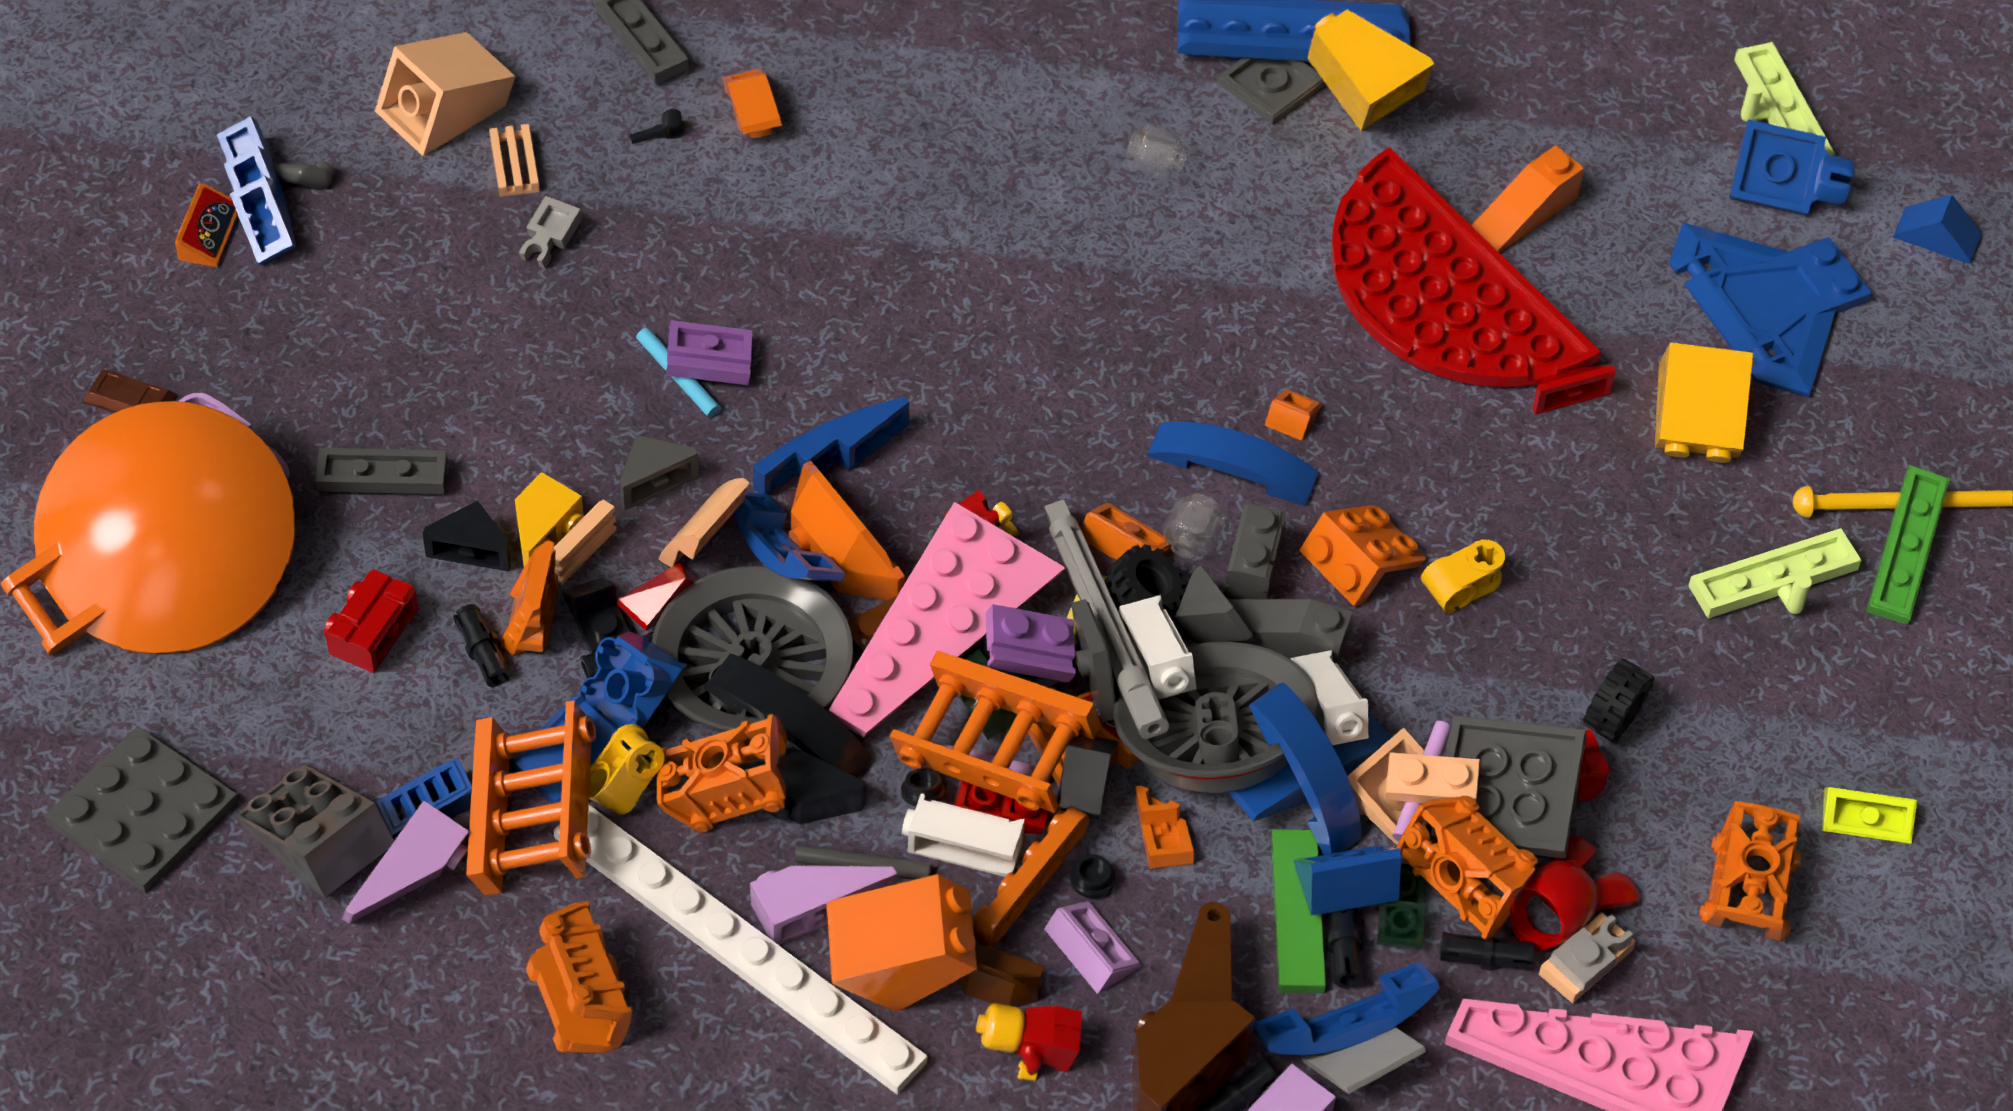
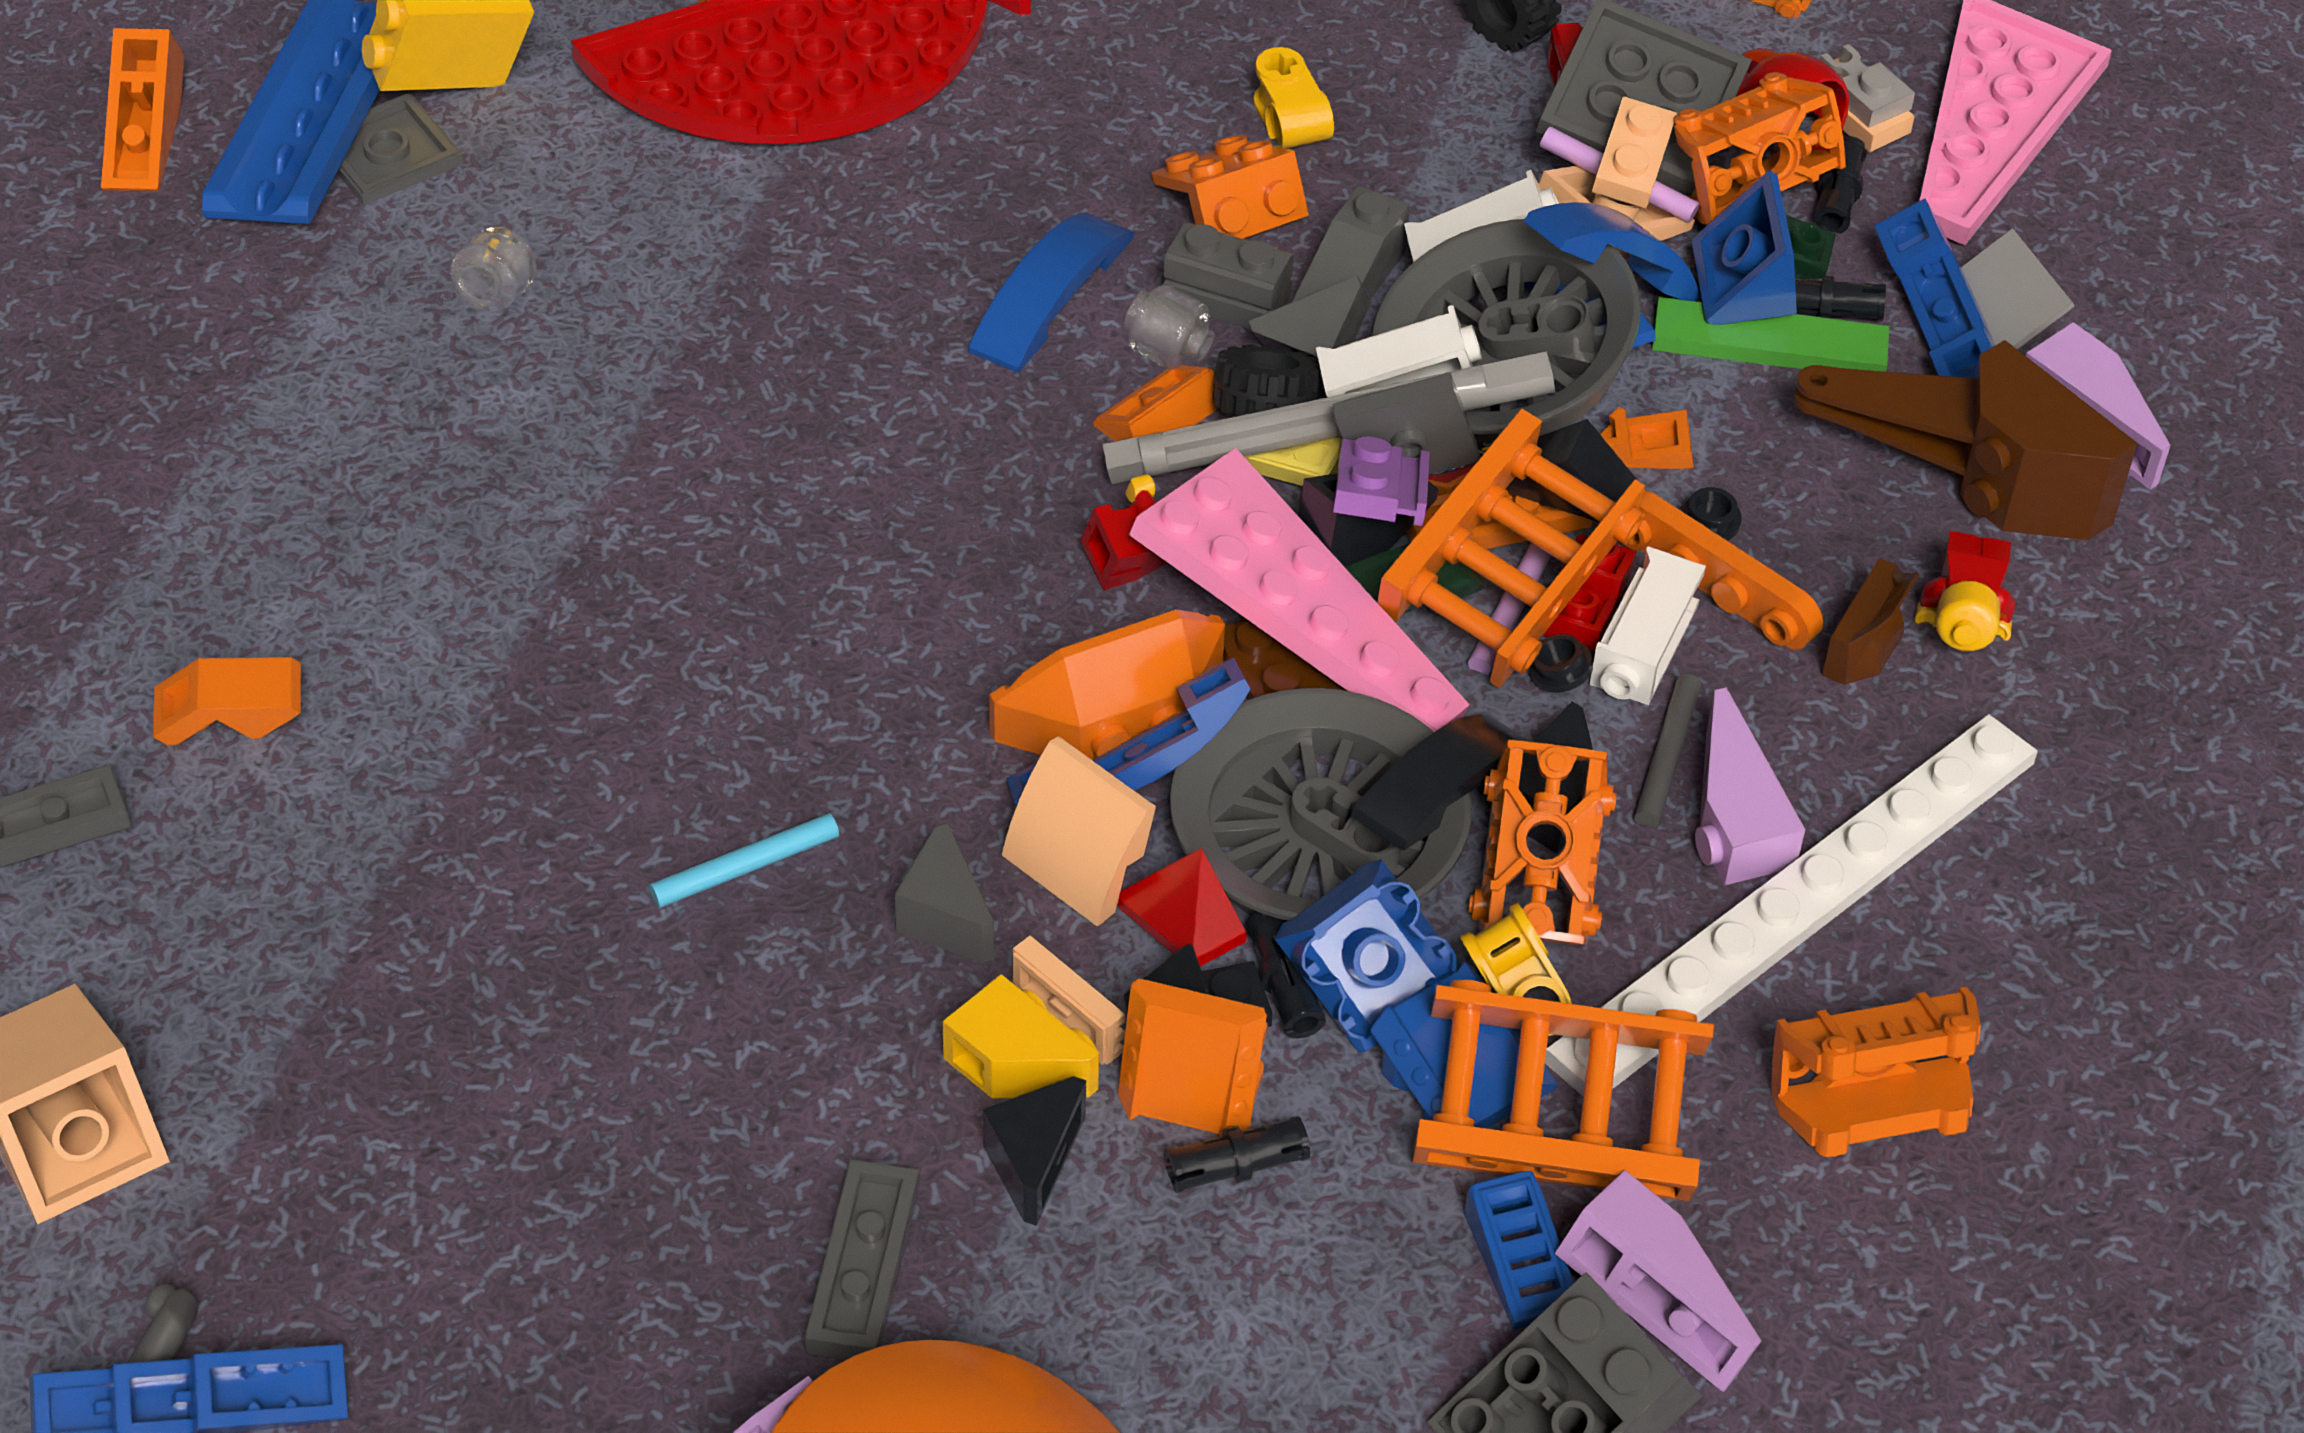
camera: 80 degrees left, 5 degrees down
(371, 620) = (1174, 1293): red brick -> none
(510, 136) = (232, 1019): light nougat tile -> none
(550, 226) = (407, 981): light grey plate -> none
(671, 128) = (230, 811): black hand -> none
(709, 352) = (729, 807): medium lavender plate -> none
(841, 440) = (945, 680): blue slope -> none
(902, 940) = (1853, 673): orange slope -> none
(1091, 945) = (1815, 536): lavender slope -> none
(1292, 414) = (984, 219): orange slope -> none

